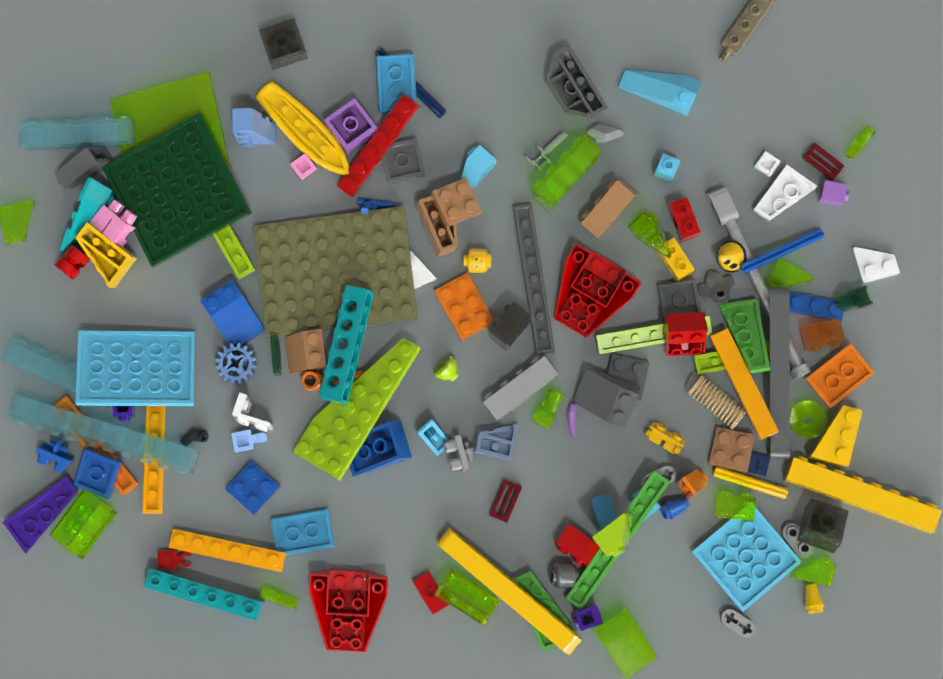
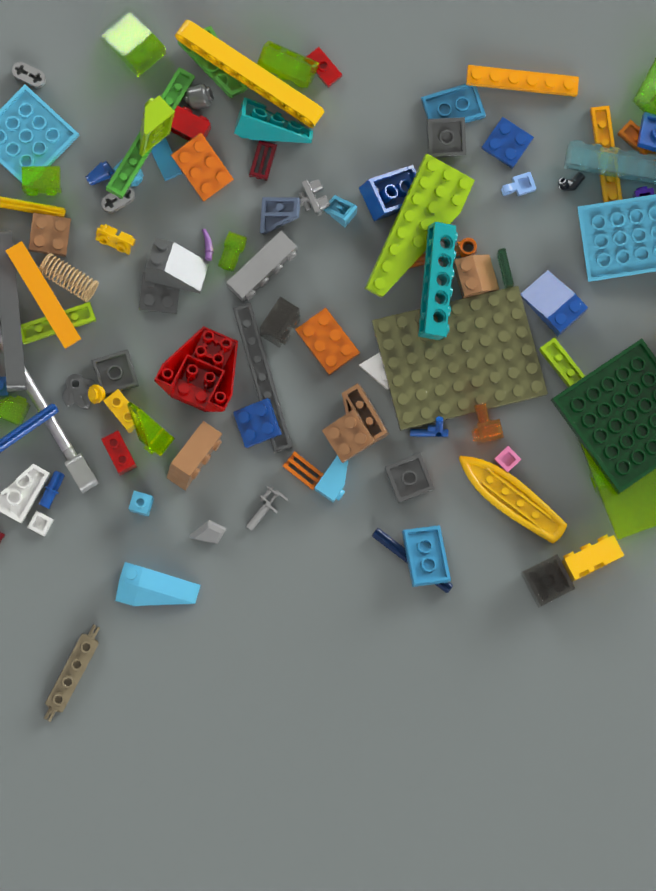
camera: 170 degrees right, 0 degrees up
(169, 560) = (575, 66): red plate -> none
(203, 594) = (537, 36): teal brick -> none
(225, 370) = (538, 250): medium blue gear -> none
(237, 61) = (592, 557): none -> yellow wedge
(244, 406) = (526, 201): white bracket -> none
(252, 128) = (564, 486): medium blue wedge -> none
(279, 598) = (466, 44): clear neon green axle -> none
(314, 498) = (446, 137): none -> dark grey plate
(319, 195) = (486, 430): none -> clear orange brick
(347, 606) = (400, 44): red wedge -> none
(351, 126) = (465, 504): medium lavender brick -> none
(378, 145) = (435, 488): red plate -> none
(446, 369) = (336, 276): lime brick -> none
(478, 260) = (319, 386): yellow head -> none
(499, 187) = (298, 476): none -> orange tile
(500, 537) = (260, 124): none -> teal wedge
(544, 232) = (257, 423): none -> blue plate
(565, 173) = (242, 481): clear neon green brick -> none
(569, 498) = (202, 167): none -> orange plate
(573, 85) = (245, 573): dark grey wedge -> none
(593, 613) = (171, 54): dark purple brick -> none
(636, 337) = (137, 335): lime plate -> none
(685, 334) = (105, 336): red slope -> none
(692, 483) = (84, 193): orange slope -> none
(700, 280) = (96, 394): none -> yellow plate
(731, 255) = (68, 422): yellow hat -> none
(746, 327) = (46, 352): bright green wing -> none
(753, 194) = (51, 489): none -> blue axle
(758, 464) = (22, 225): dark blue tile -> none

